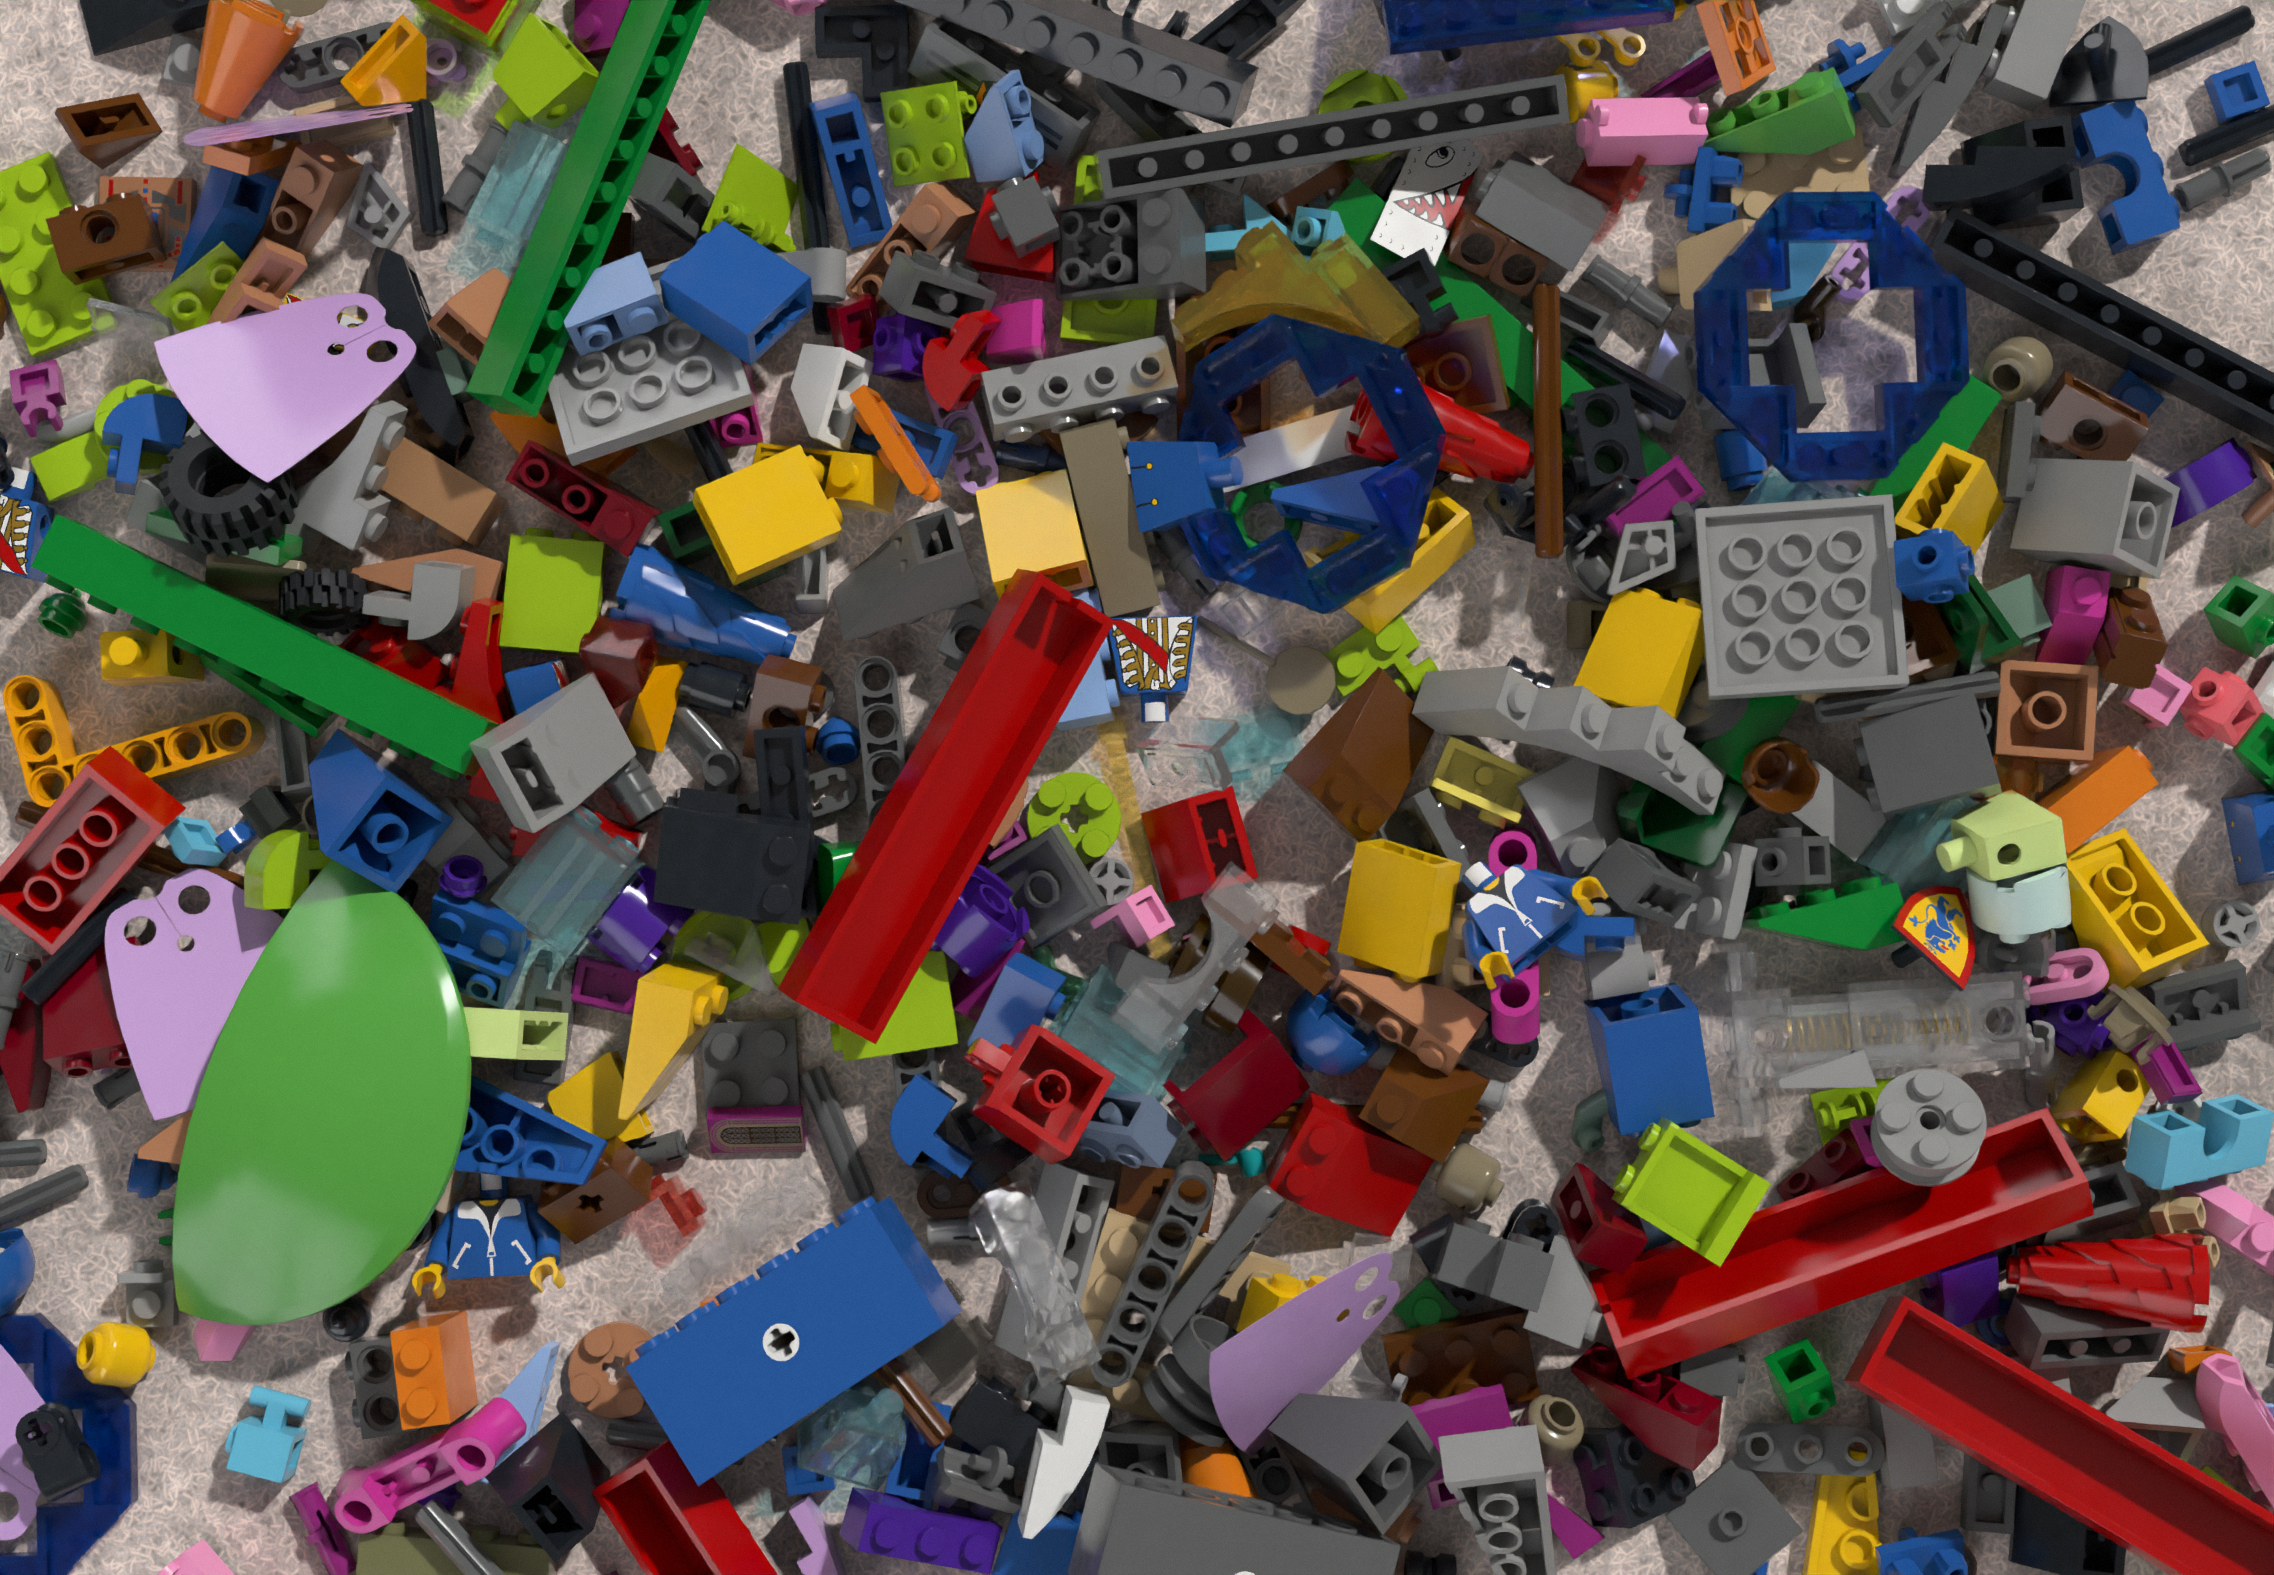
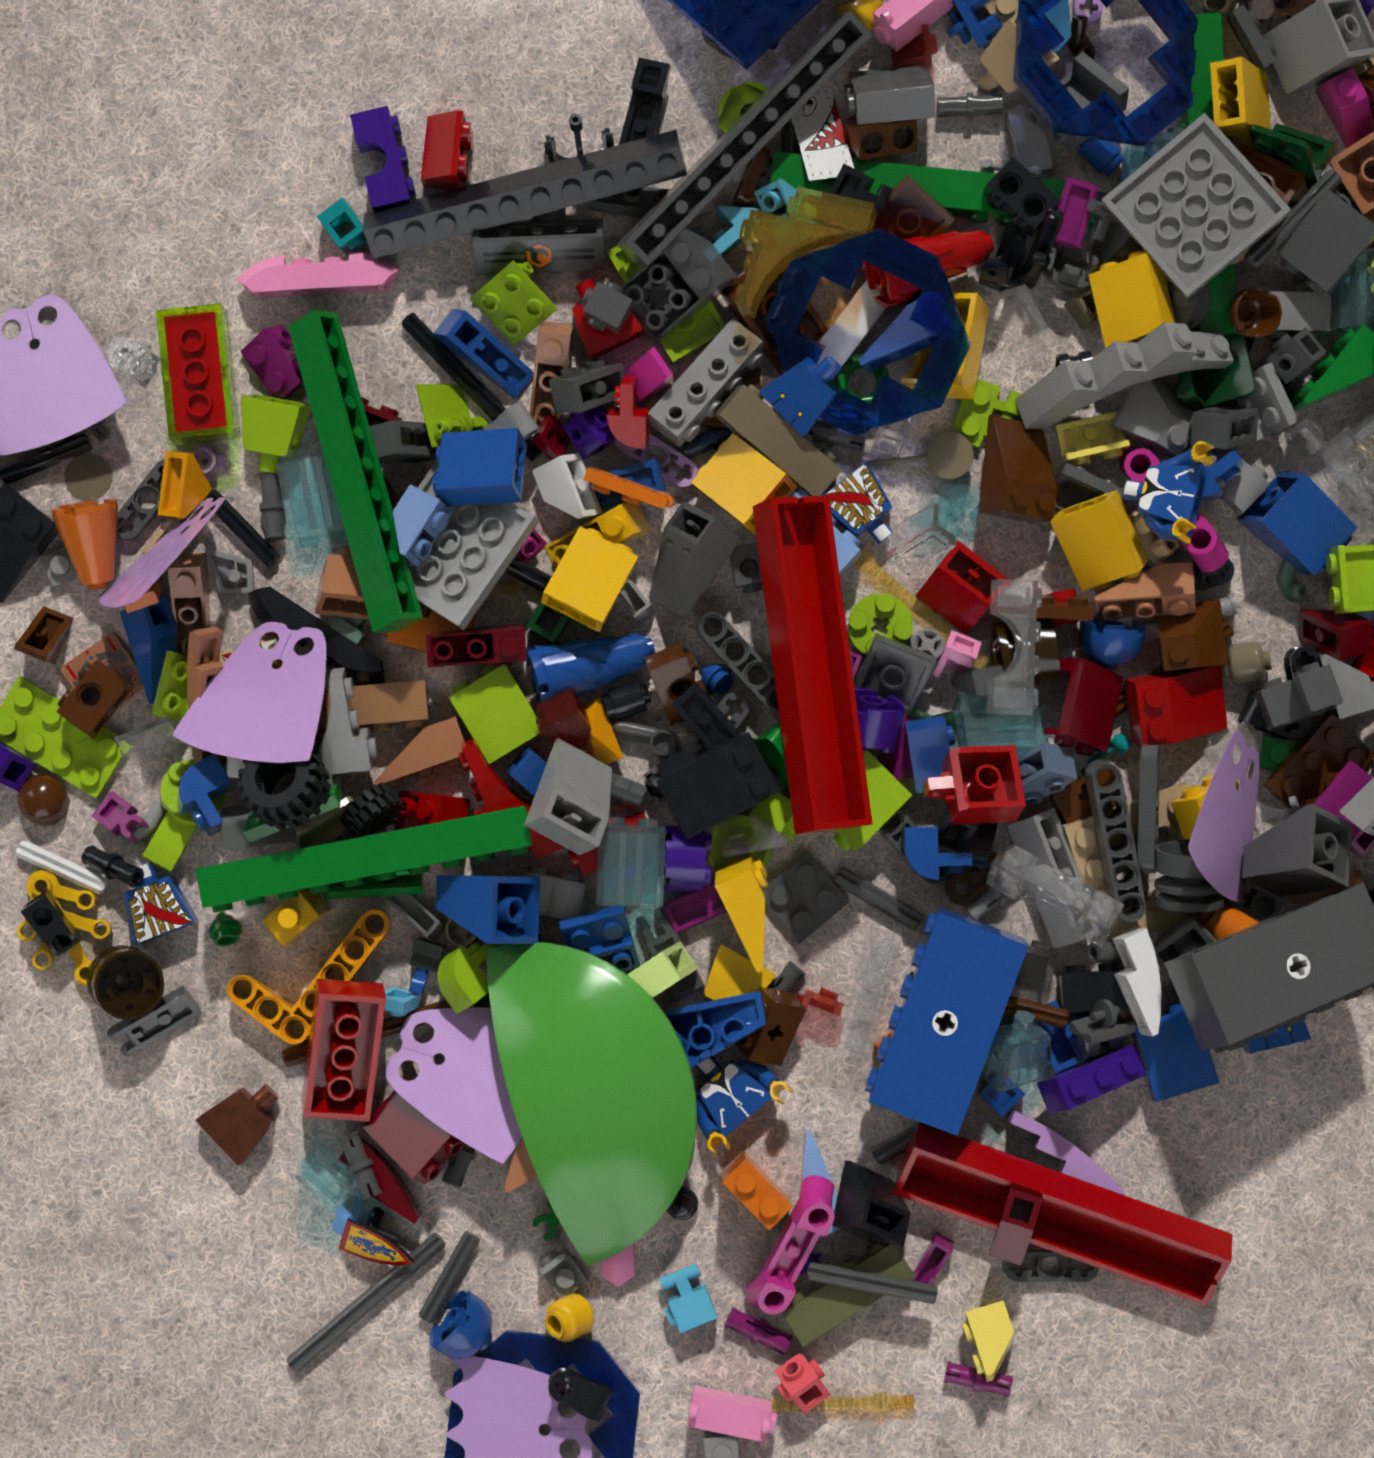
camera: 40 degrees left, 0 degrees up
(74, 951) = (380, 1108): black axle -> none
(150, 1177) = (511, 1206): blue plate -> none
(371, 1386) = (726, 1228): dark grey brick -> none
(435, 603) = (439, 765): light grey brick -> none
(463, 876) = (568, 906): dark purple plate -> none
(590, 1382) = (844, 1137): nougat plate -> none
(756, 1129) = (833, 928): tile -> none
(868, 32) = (440, 268): black plate -> none
(1004, 134) = (561, 271): medium blue slope -> none
(1547, 421) = (982, 210): reddish brown axle -> none
(1579, 317) = (946, 141): dark grey piece -> none
(1615, 372) = (1001, 155): black axle -> none
(1642, 554) = (1090, 246): light grey piece -> none
(1933, 566) = (1256, 135): blue brick -> none
(2022, 608) = (1317, 123): sand green brick -> none

